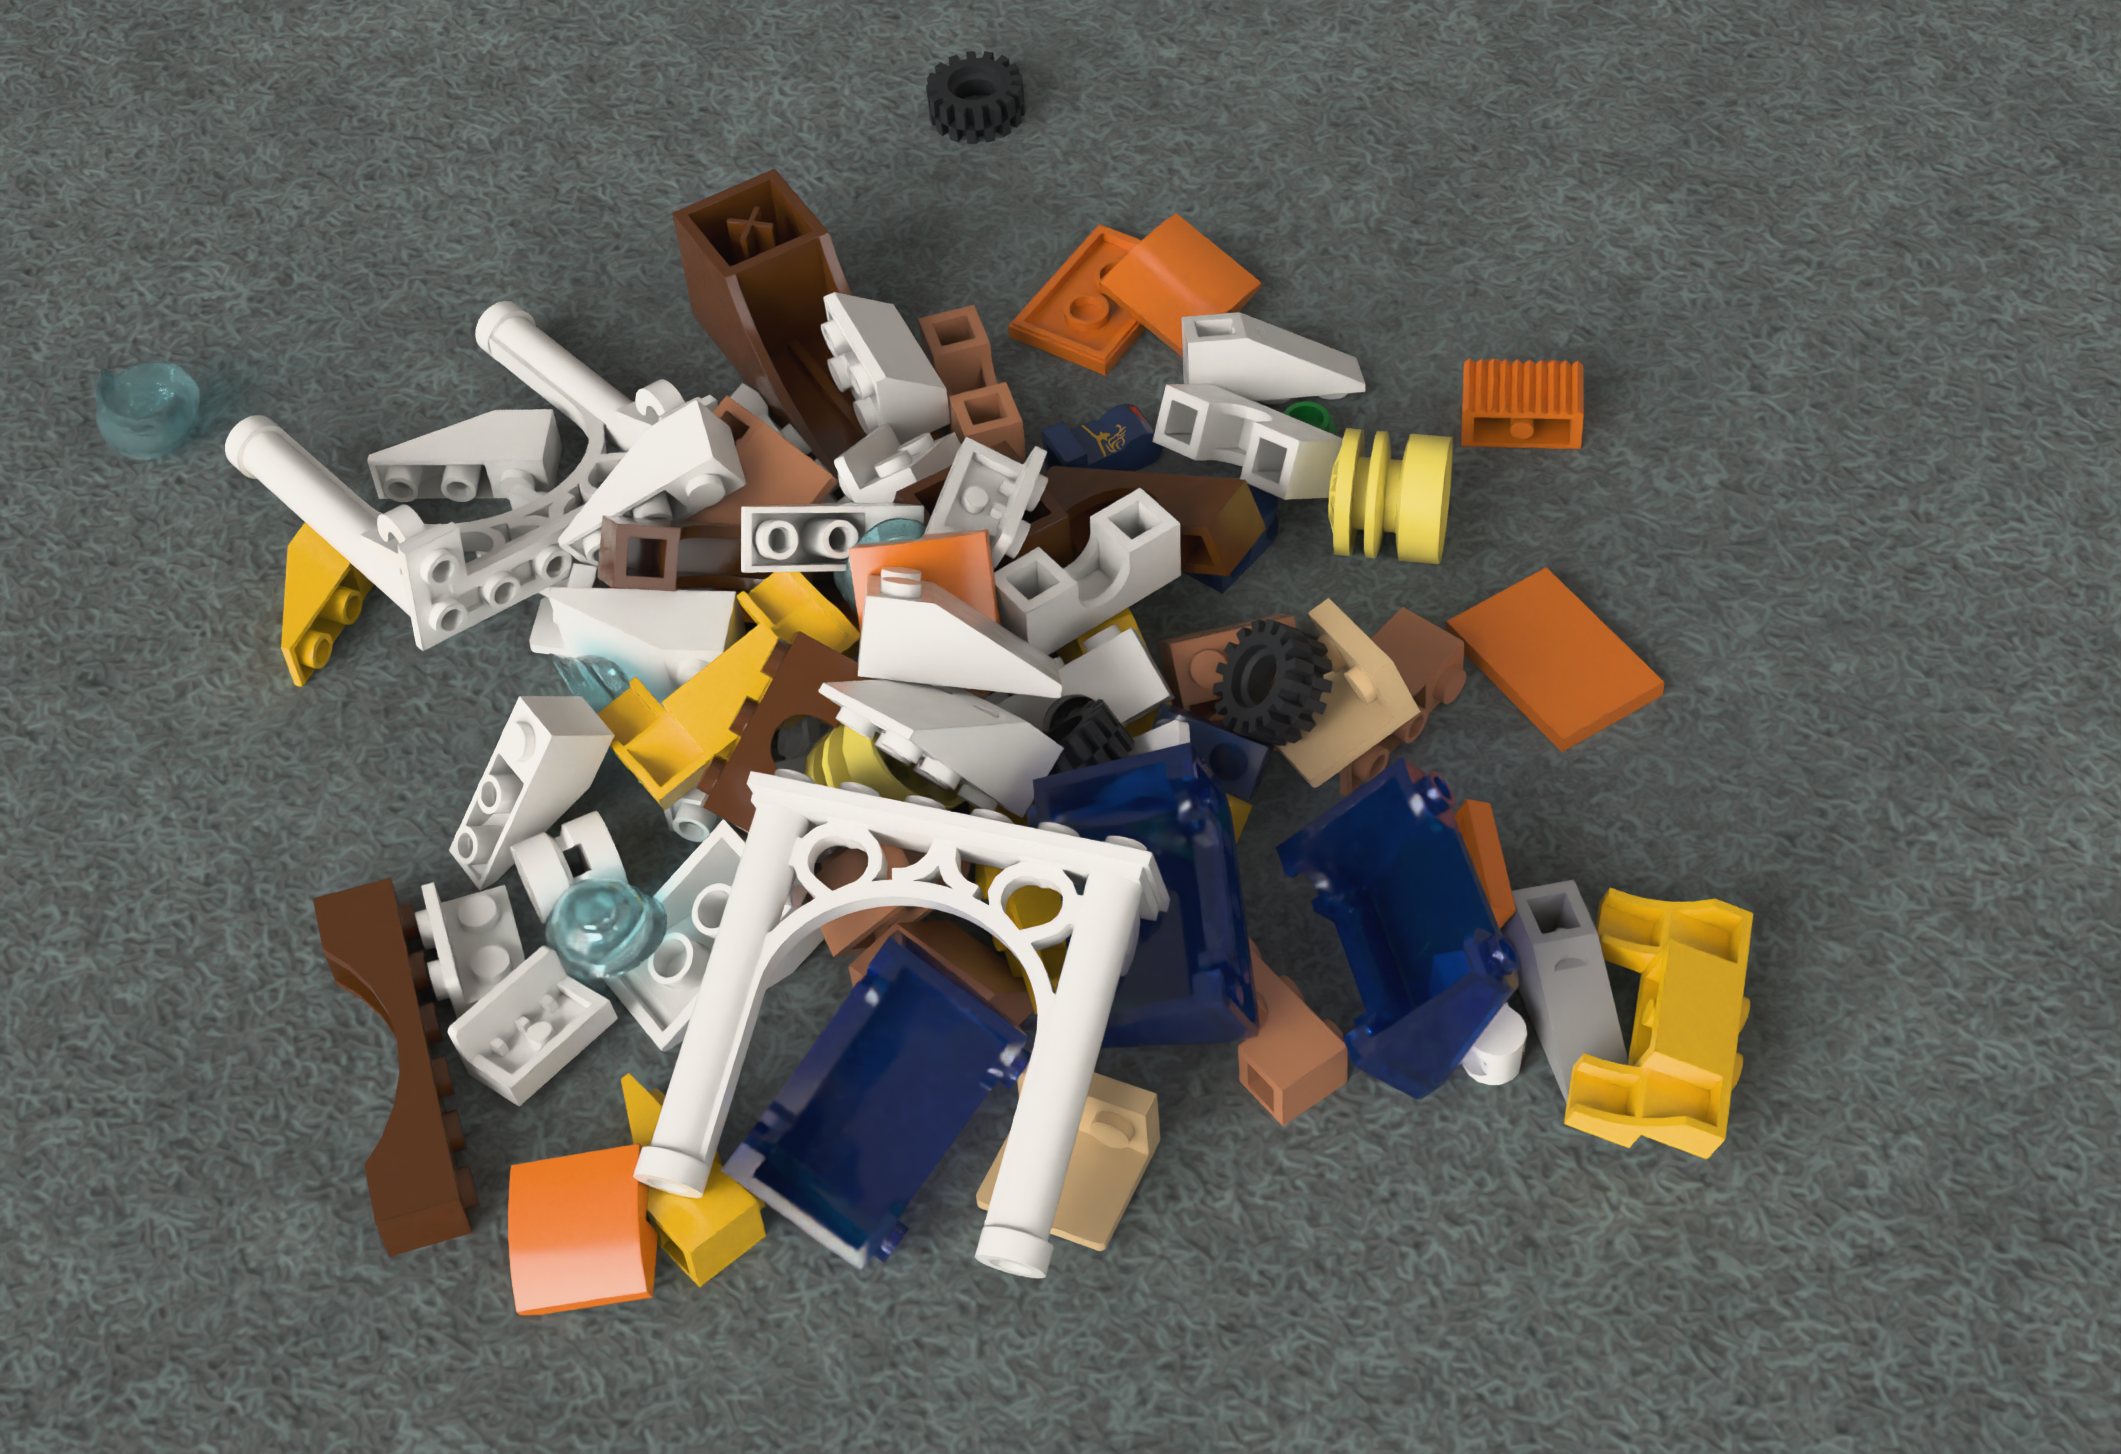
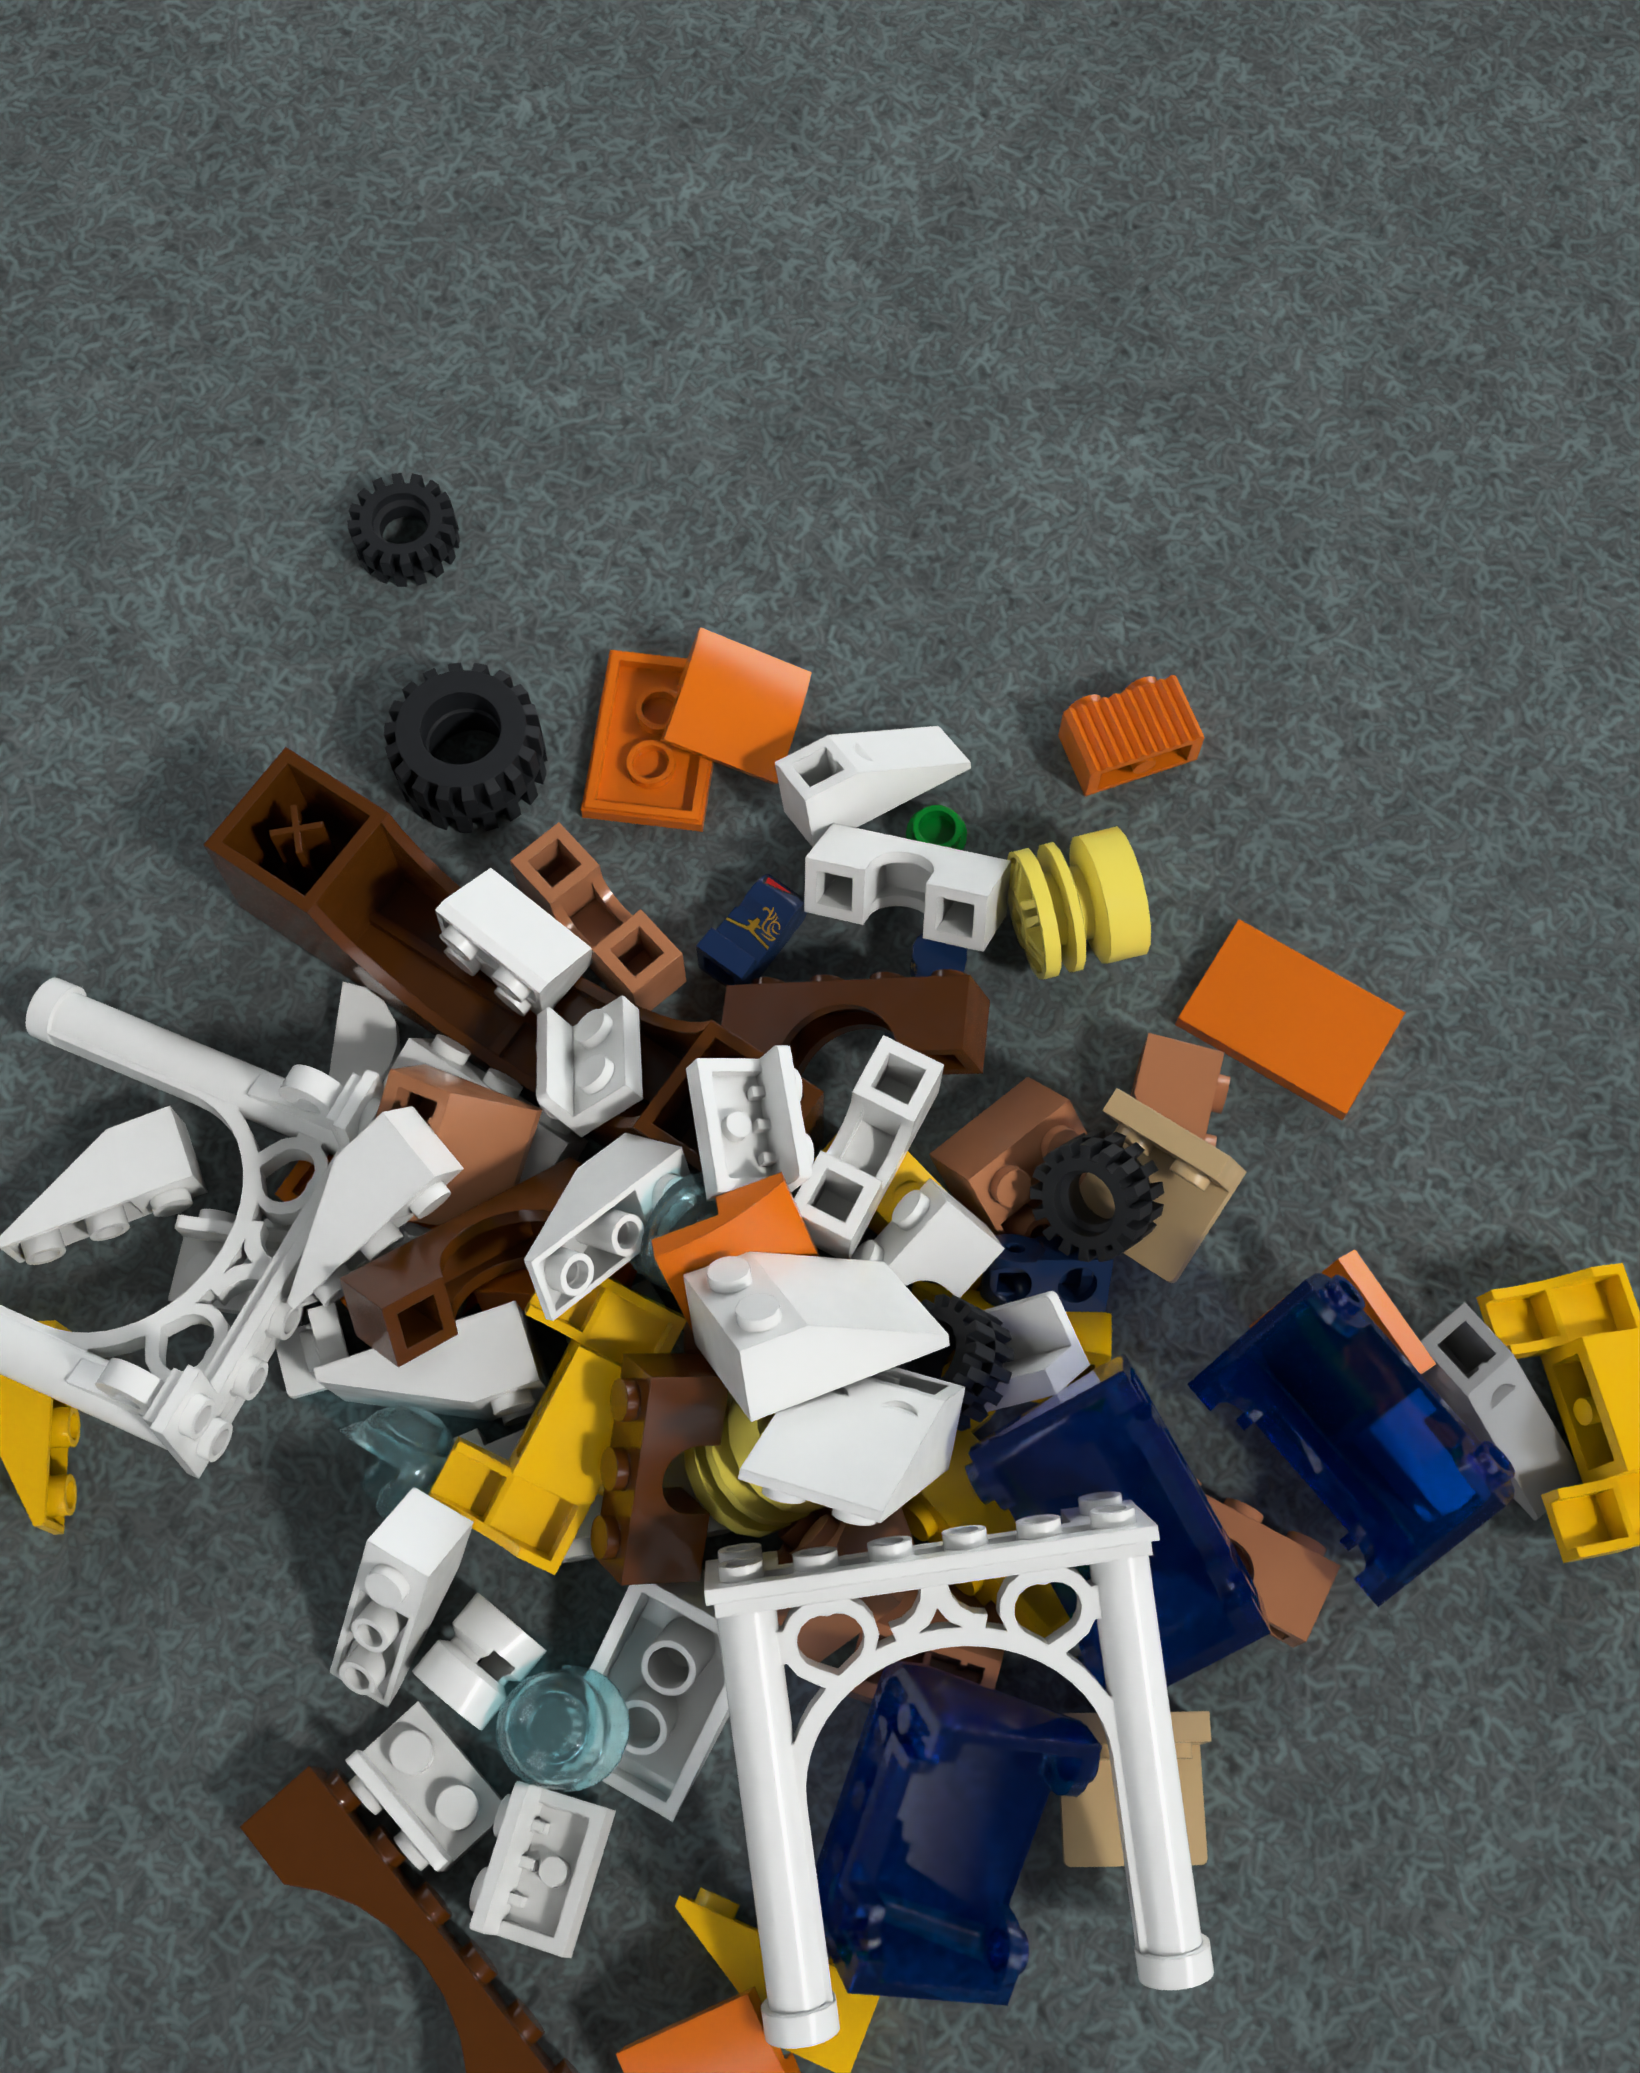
camera: 30 degrees left, 20 degrees up
(935, 247) = (456, 704): none -> black tyre

